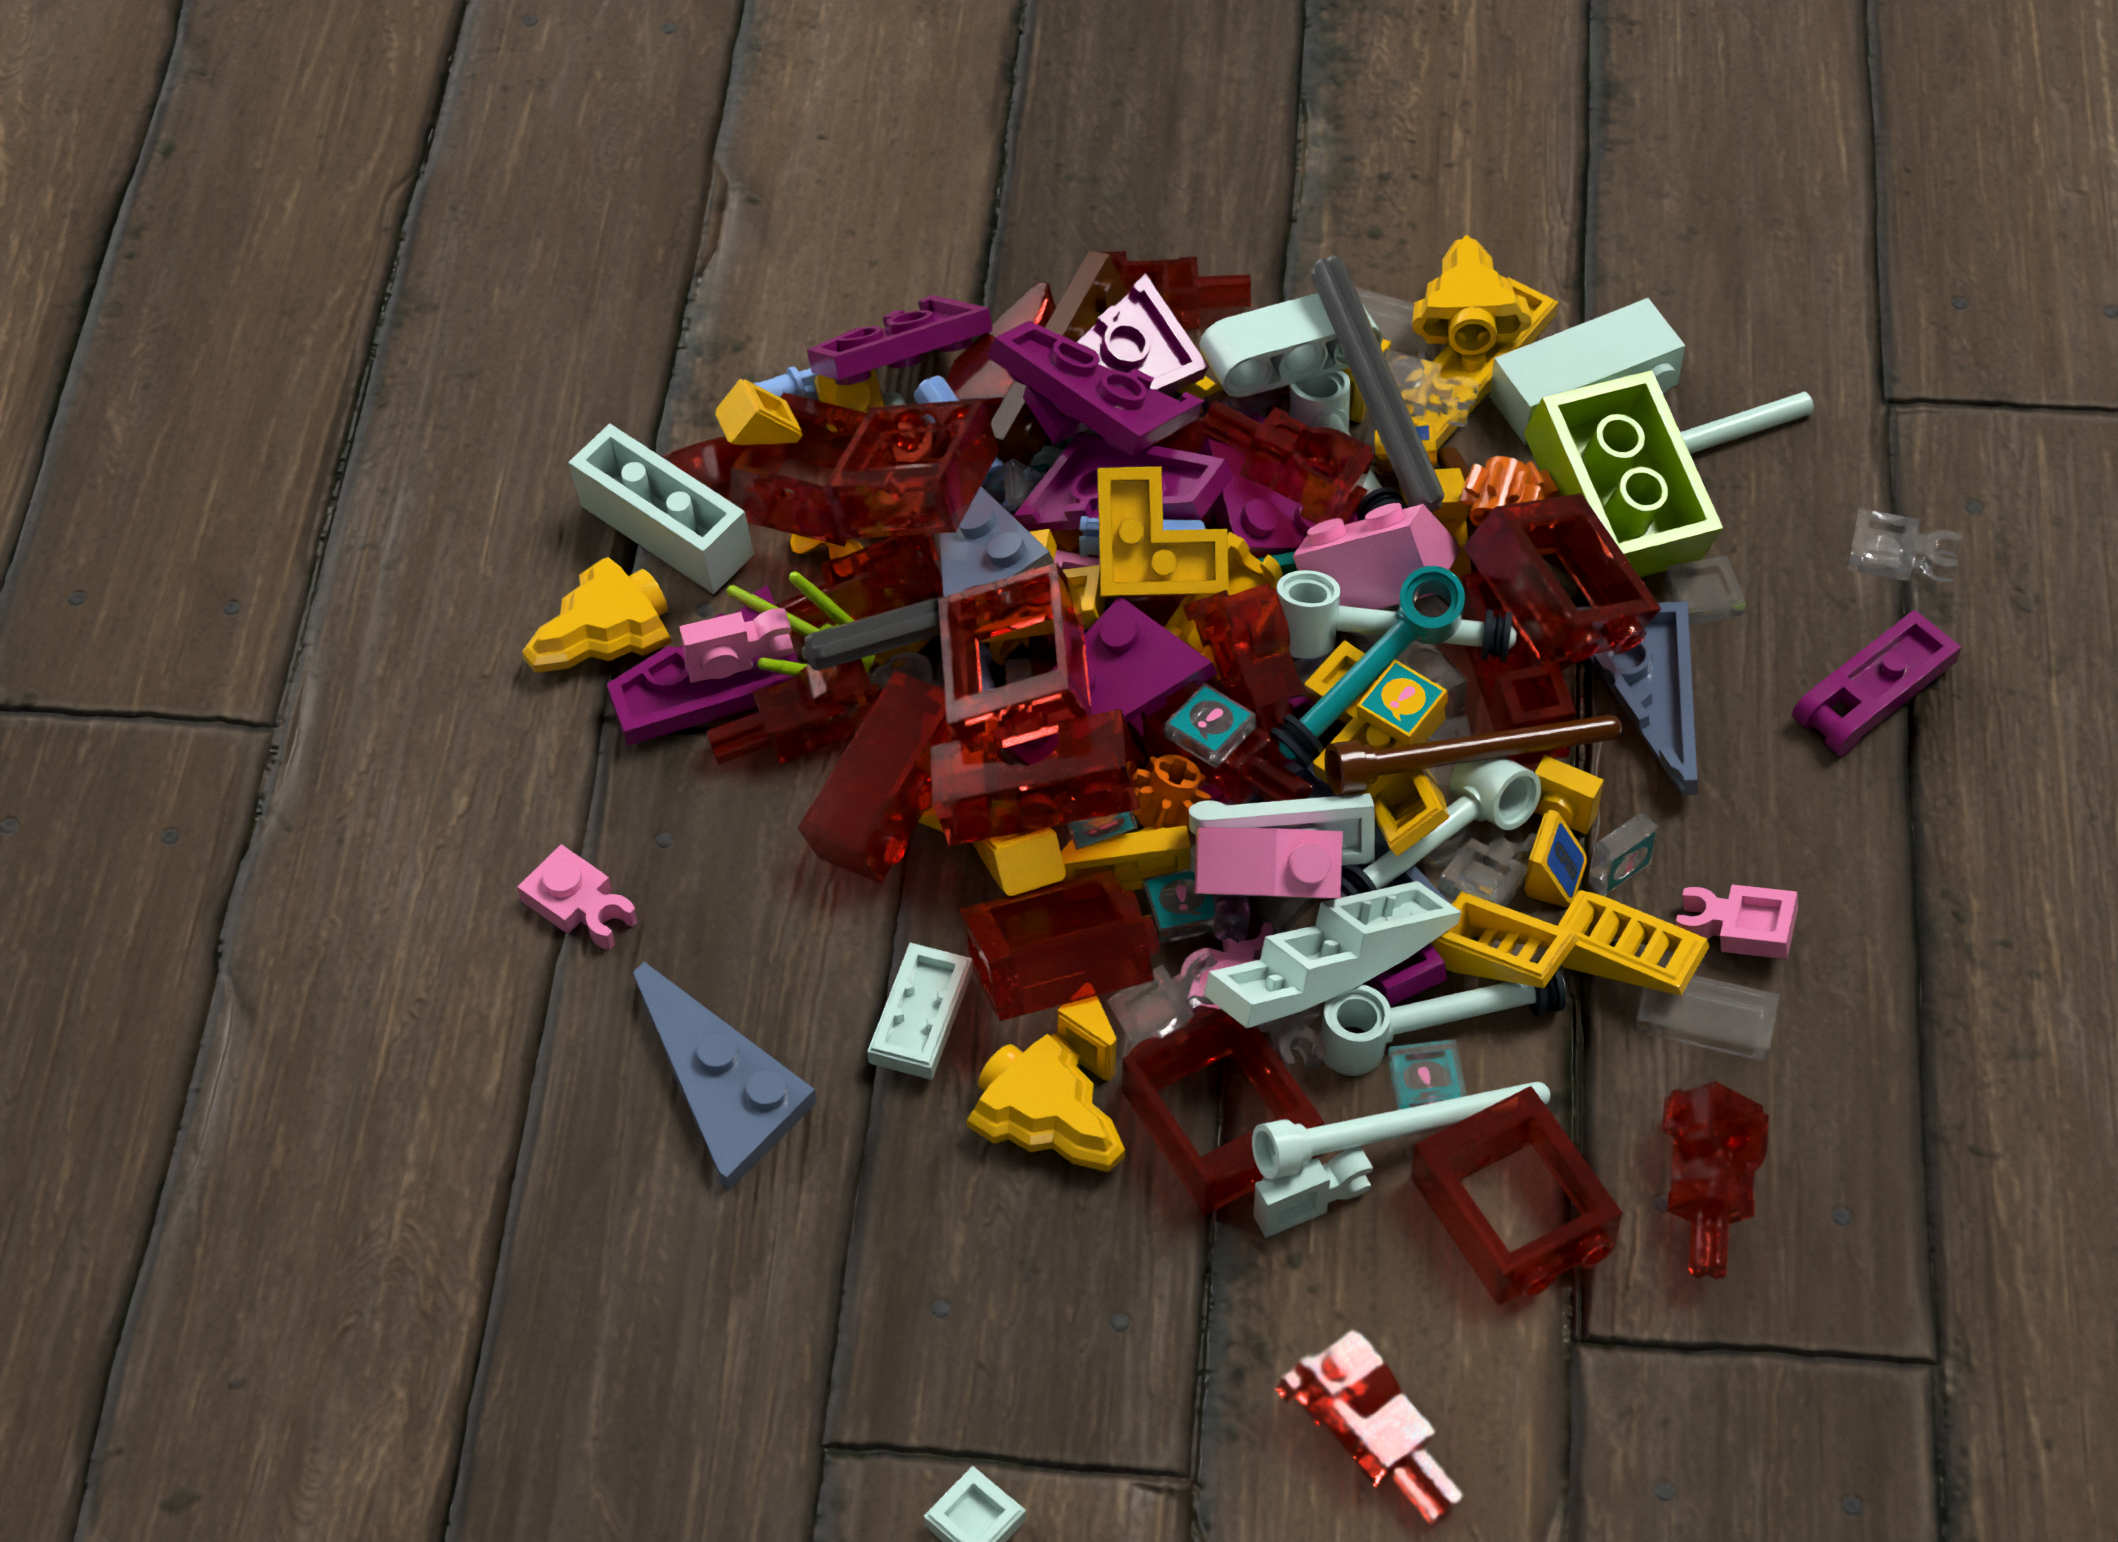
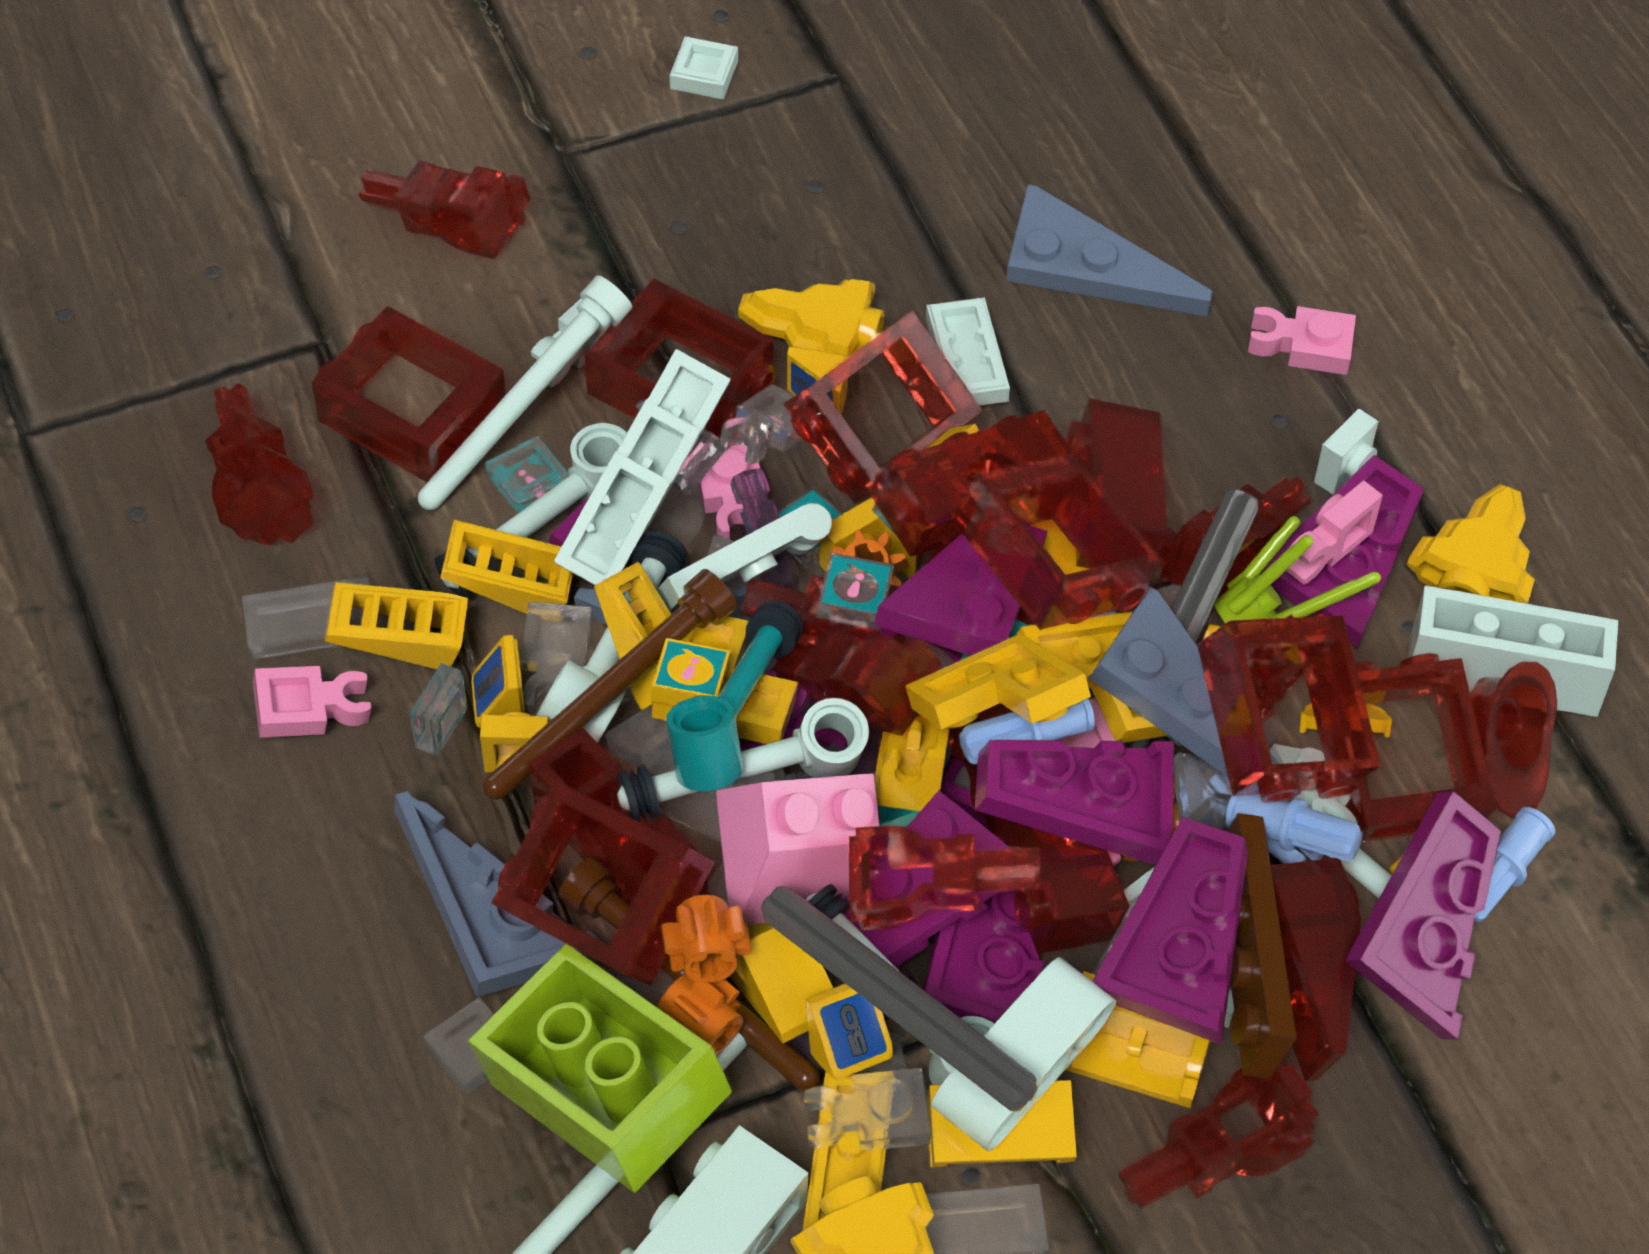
camera: 150 degrees right, 0 degrees up
(643, 750) = (1346, 451): none -> light aqua plate
(756, 417) = (1480, 729): yellow slope -> none
(1107, 401) = (1167, 840): magenta wing -> none
(1268, 862) = (725, 497): bright pink slope -> none
(1877, 681) = (254, 1002): magenta plate -> none
(1892, 546) = (293, 1170): clear plate -> none

